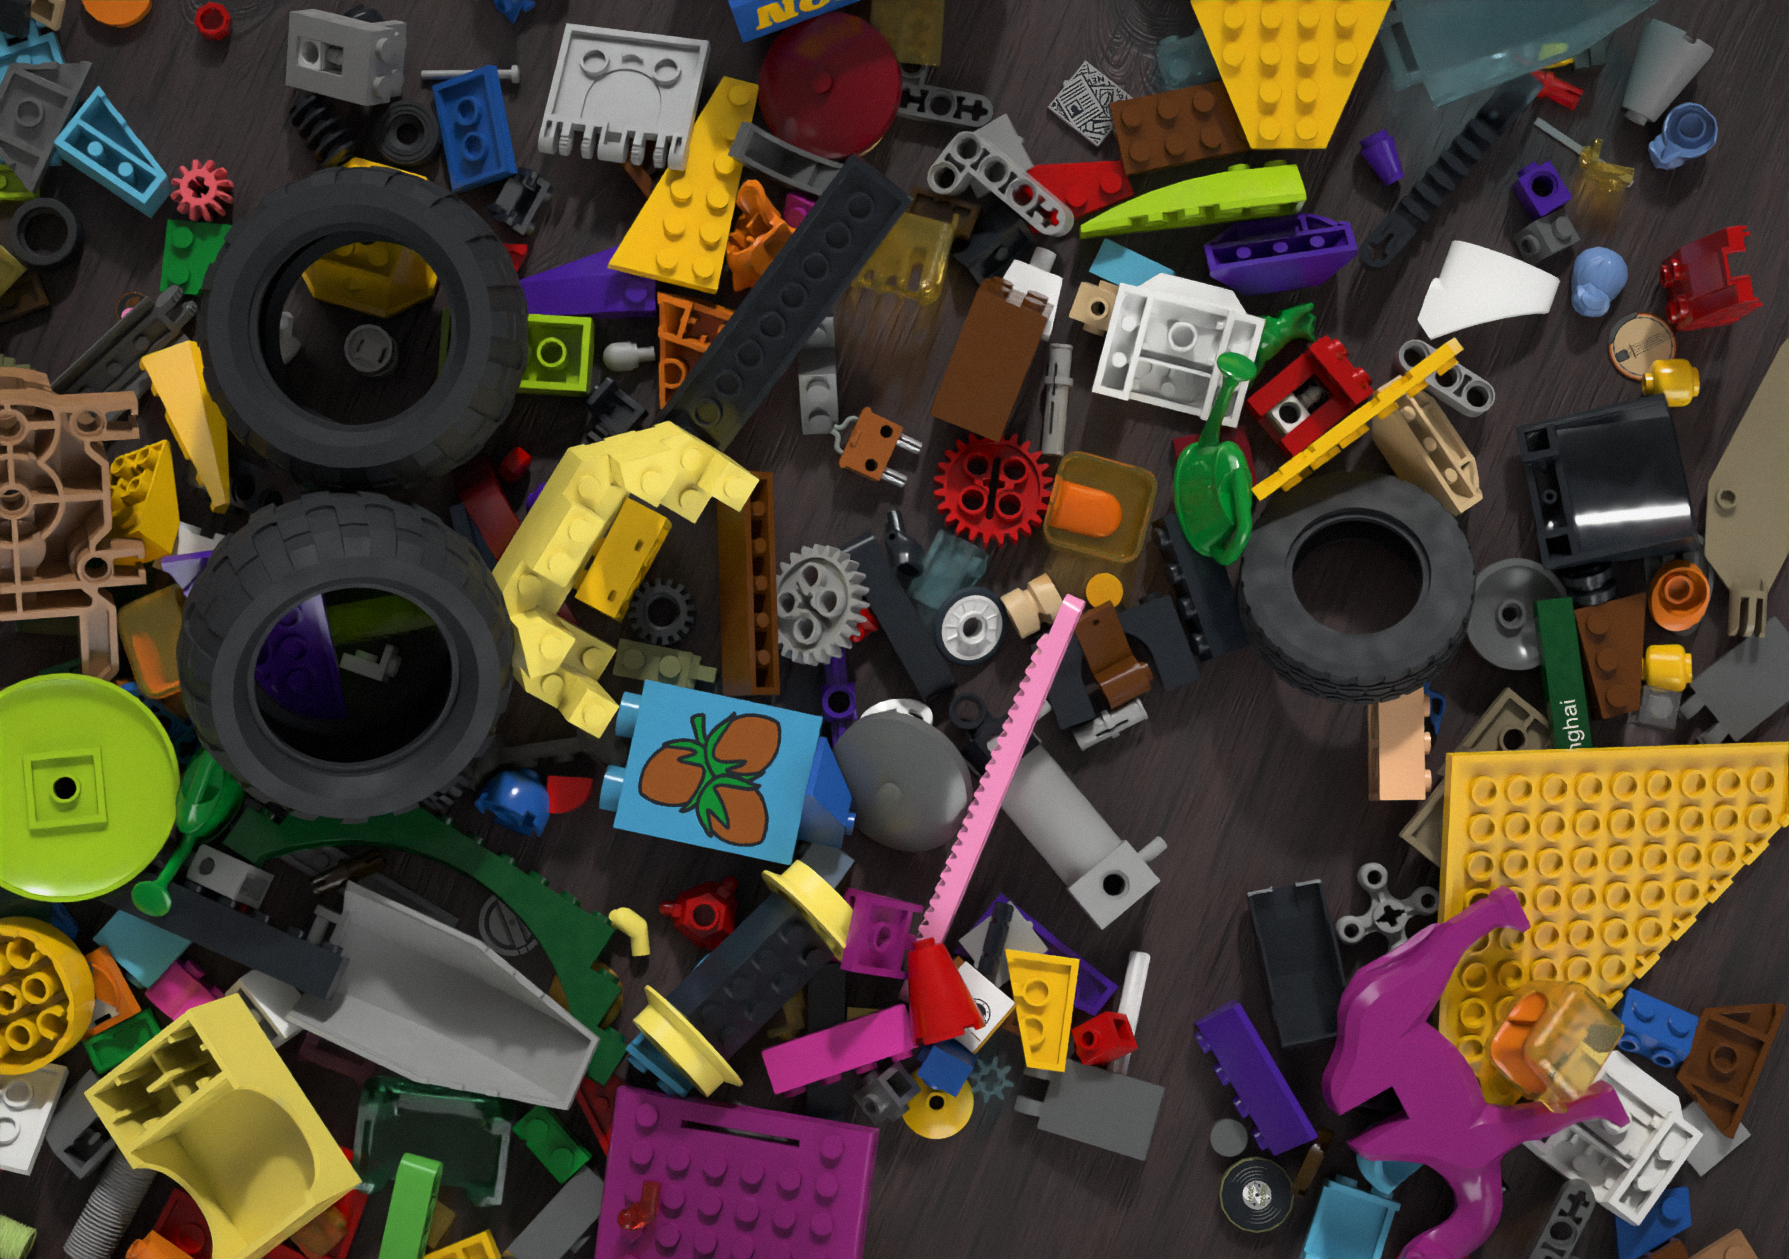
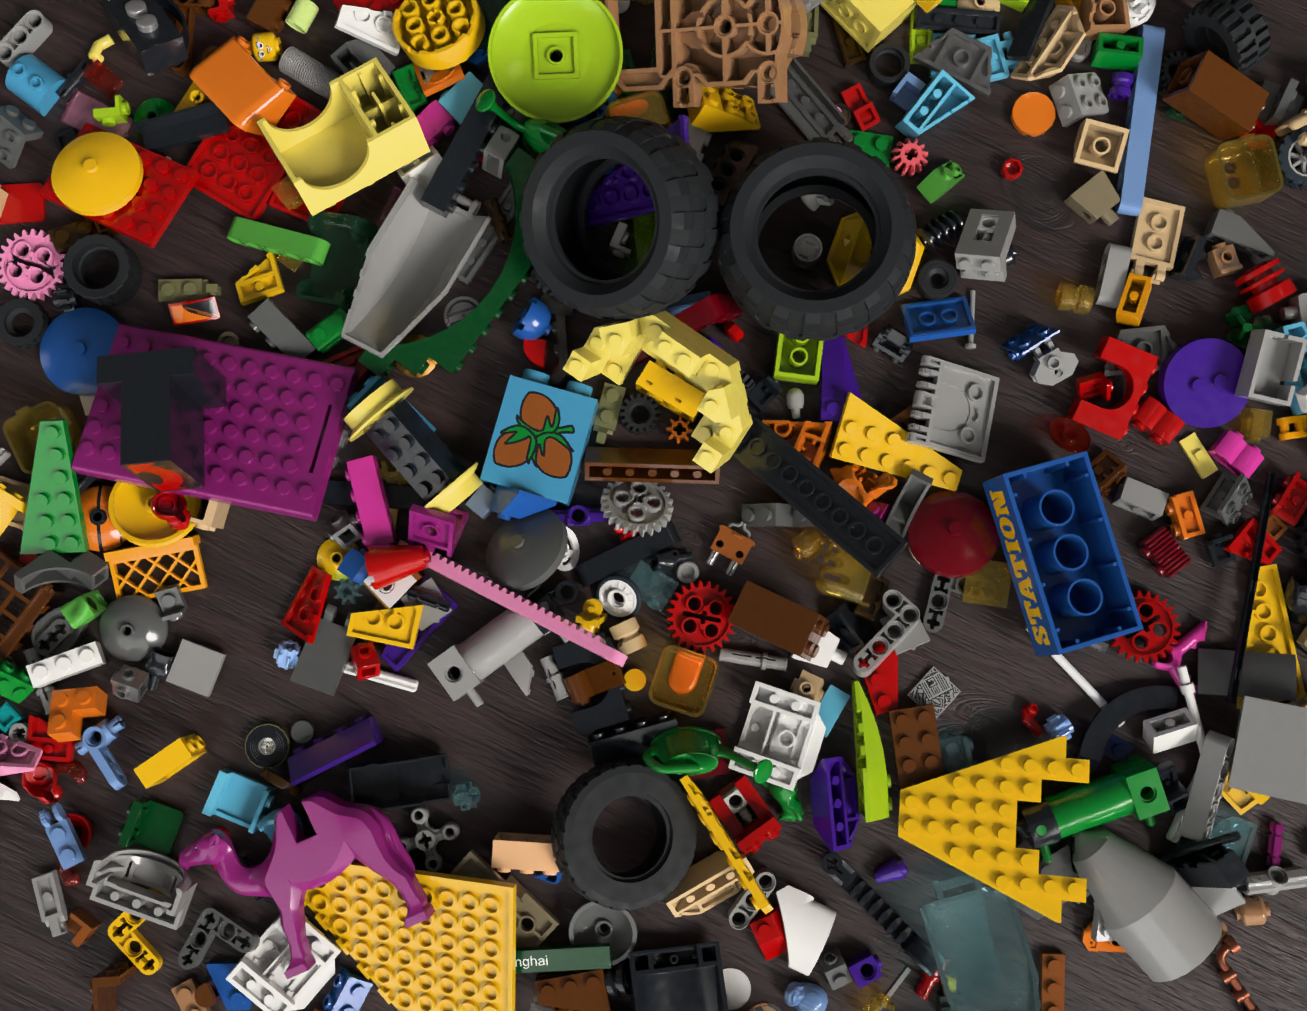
camera: 90 degrees right, 0 degrees up
(90, 199) = (907, 91): none -> medium blue panel
(124, 274) = (861, 109): none -> red slope
(192, 416) = (768, 140): yellow wedge -> none
(240, 136) = (940, 181): none -> bright green slope
(633, 926) = (455, 385): light yellow arm -> none
(643, 1211) = (280, 379): clear red arm -> none
(678, 536) = (674, 433): none -> orange gear
(704, 912) = (459, 428): red rock -> none
(863, 321) = (808, 545): none -> clear yellow head
(921, 516) = (687, 572): none -> light grey tile
(1002, 666) = (591, 615): none -> yellow hips
(1018, 1143) = (308, 604): none -> red wing
(1102, 1171) = (287, 654): none -> light blue gear
(1103, 779) = (521, 671): none -> light grey slope
(1314, 854) = (466, 796): none -> clear light blue gear
(1496, 345) = (769, 933): none -> red slope
(1553, 1041) = (337, 936): clear yellow piece -> none
(1588, 392) = (737, 988): none -> white sticker

